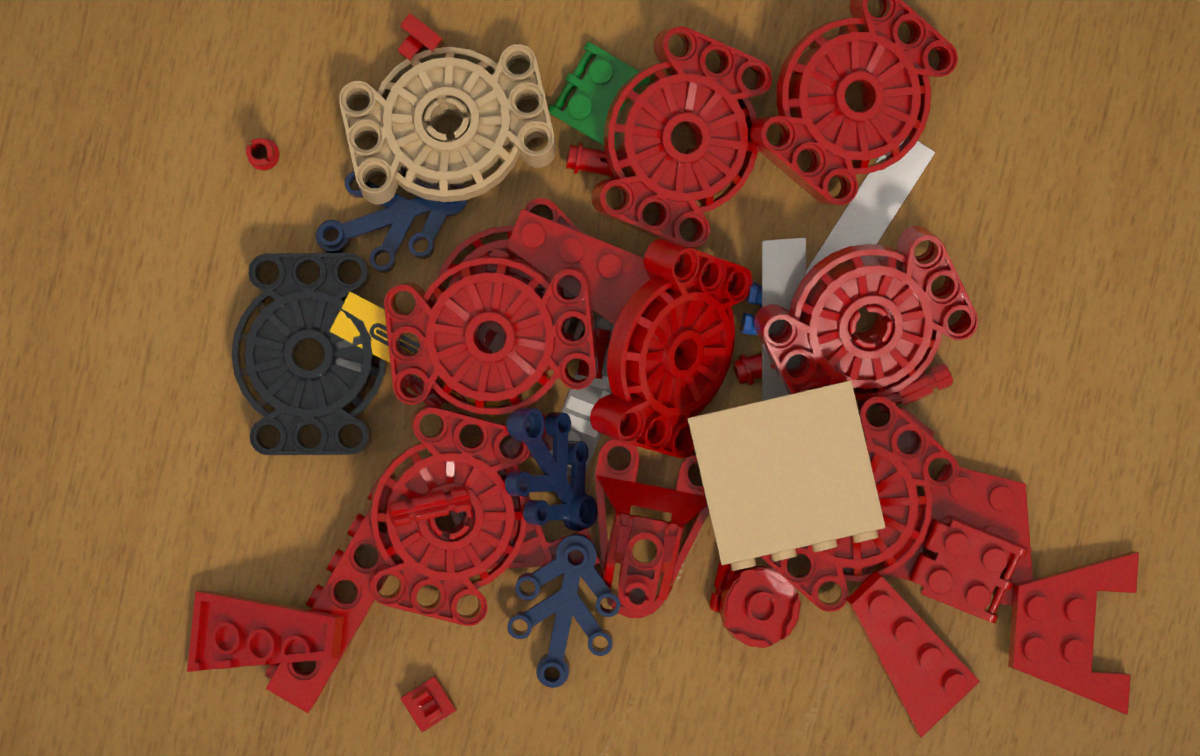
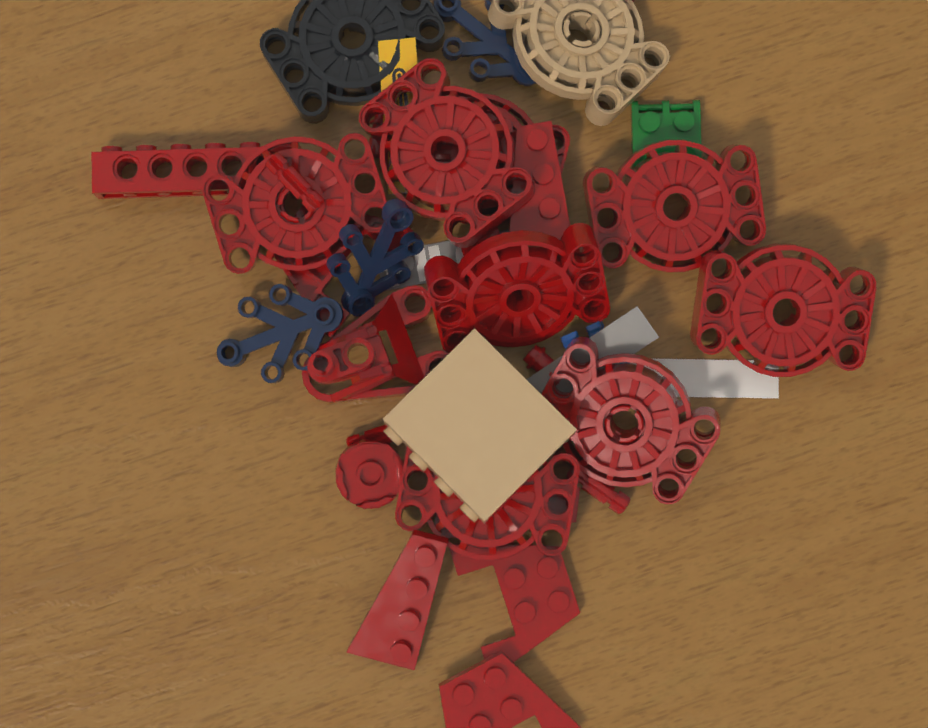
camera: 55 degrees right, 5 degrees down
(253, 632) = (127, 120): red wing -> none
(428, 703) = (152, 278): red tile -> none
(588, 160) = (614, 150): red pin -> none
(967, 567) = (492, 607): red plate -> none

